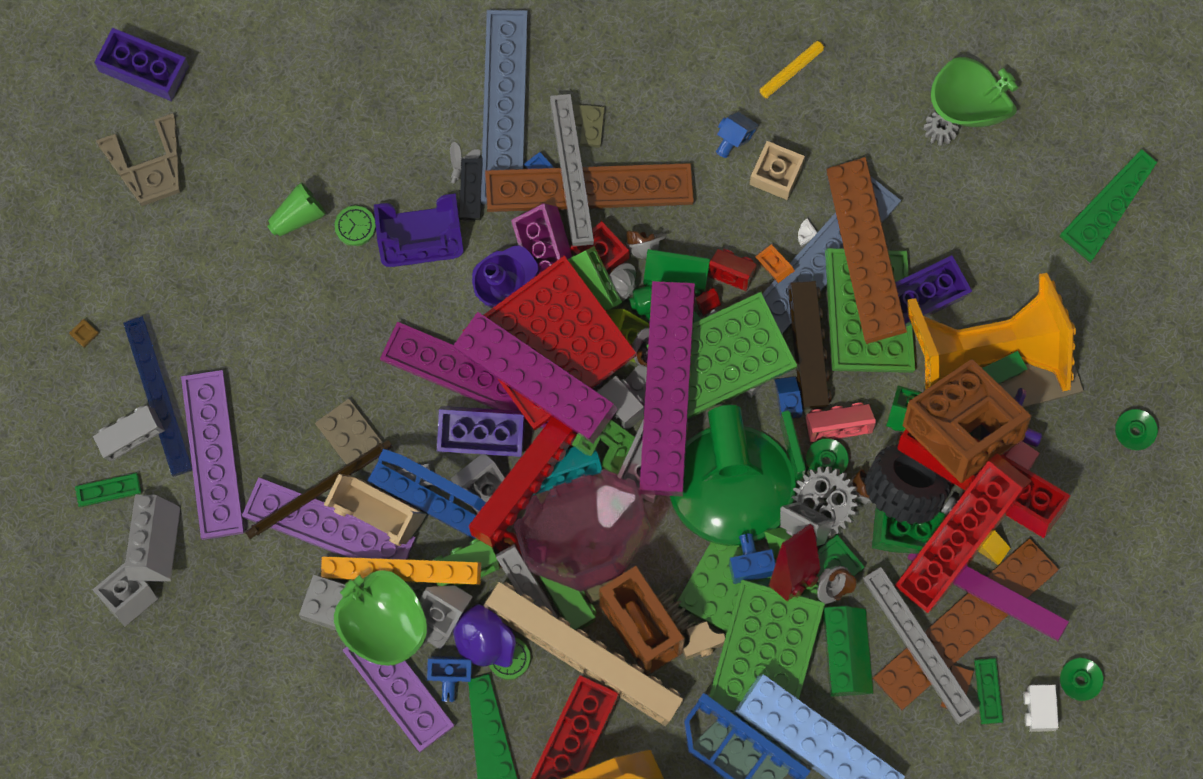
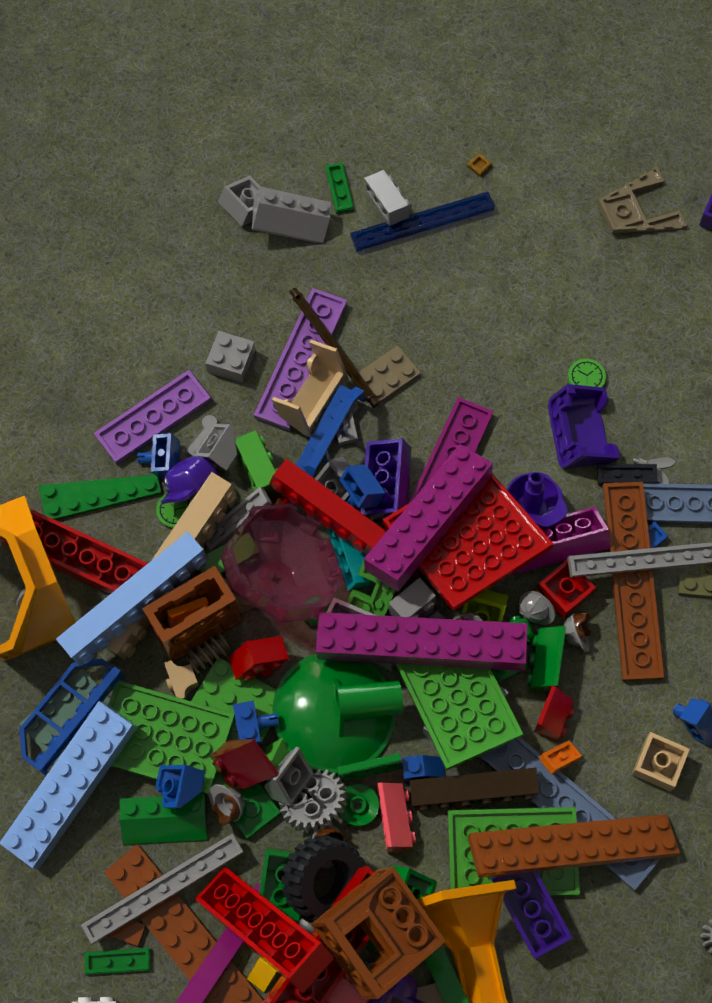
camera: 90 degrees right, 5 degrees down
(212, 455) = (369, 264): medium lavender plate -> none
(295, 211) = (597, 325): bright green cone -> none
(380, 618) = (207, 391): bright green piece -> none
(406, 569) = (252, 411): light orange plate -> none
(496, 451) = (362, 487): none -> blue brick
(596, 278) = (533, 578): bright green brick -> none
(631, 676) = (126, 602): none -> light blue brick
(683, 556) = (258, 658): none -> red brick
(708, 301) = (520, 692): red plate -> none
(806, 232) = (597, 792): white tile -> none
(820, 630) = (179, 784): none -> blue slope

